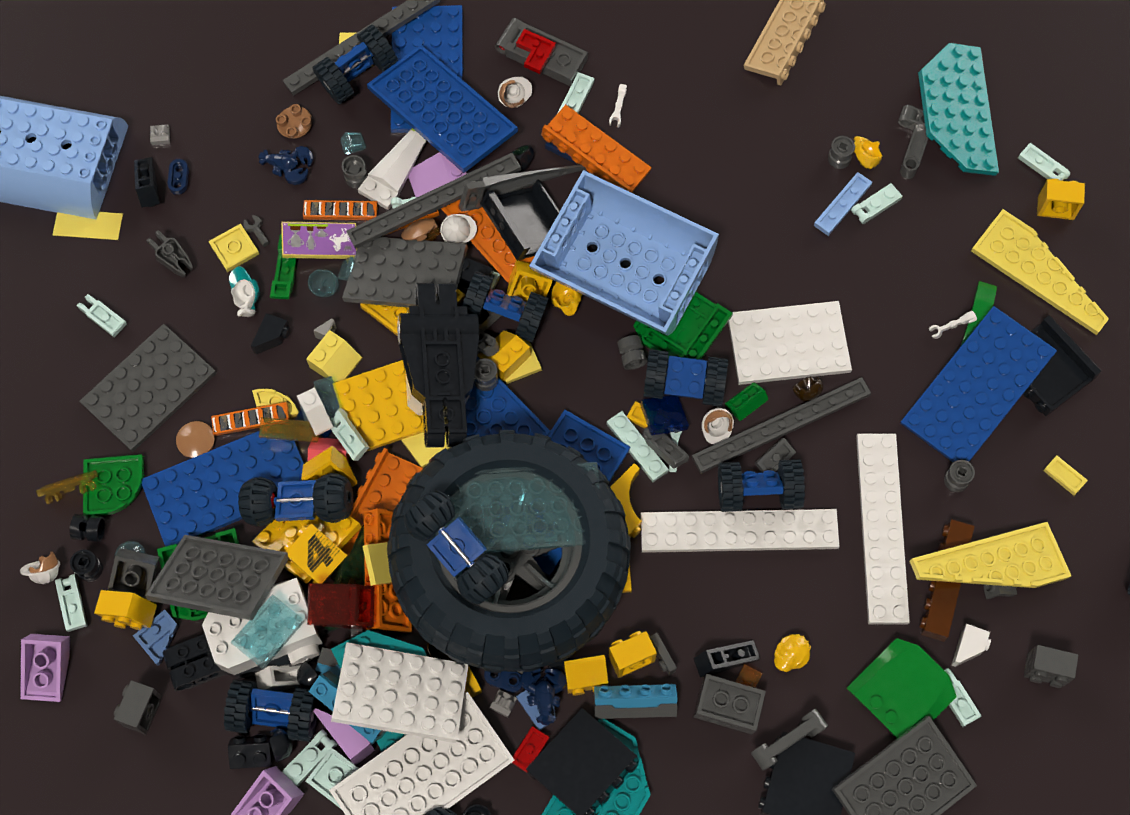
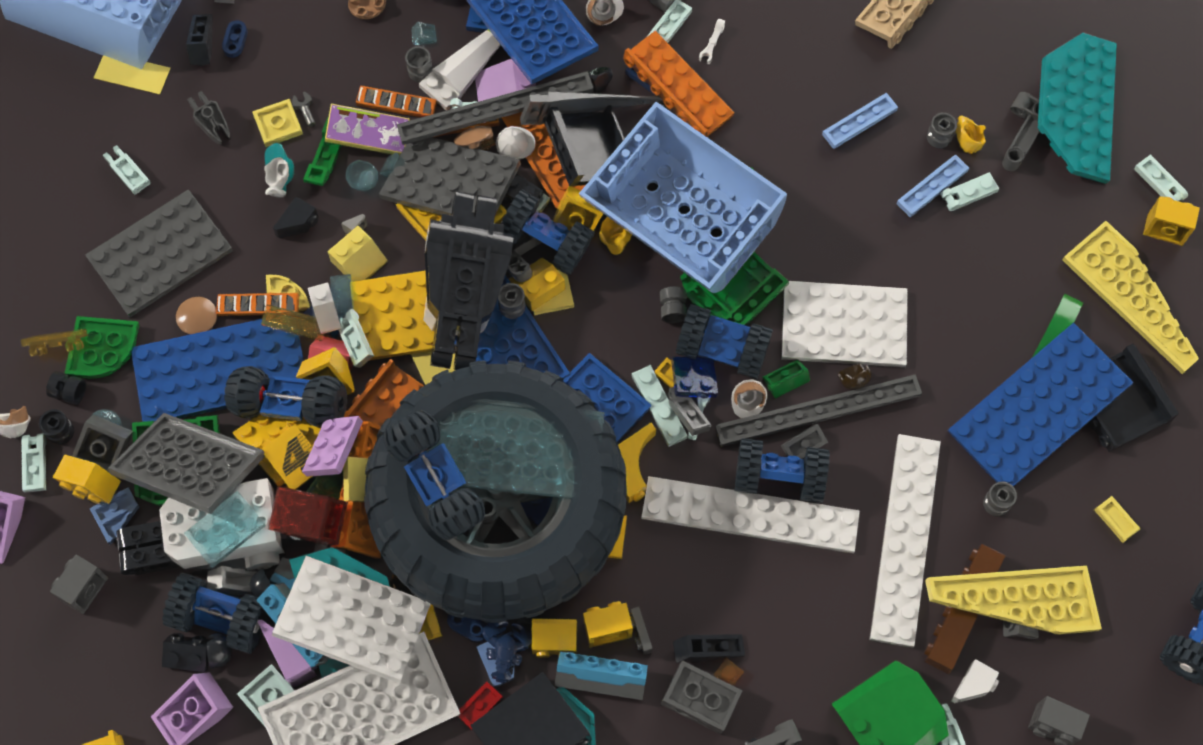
camera: 10 degrees right, 0 degrees up
(286, 162) = (350, 42): dark blue animal -> none
(308, 758) = (245, 671): light aqua plate -> none
(350, 537) = (332, 446): none -> lavender plate
(503, 703) = (462, 651): light grey tile -> none
(766, 156) = (860, 120): none -> light blue plate
(792, 653) = (780, 655): yellow hair -> none
(969, 317) = (1042, 331): white piece -> none

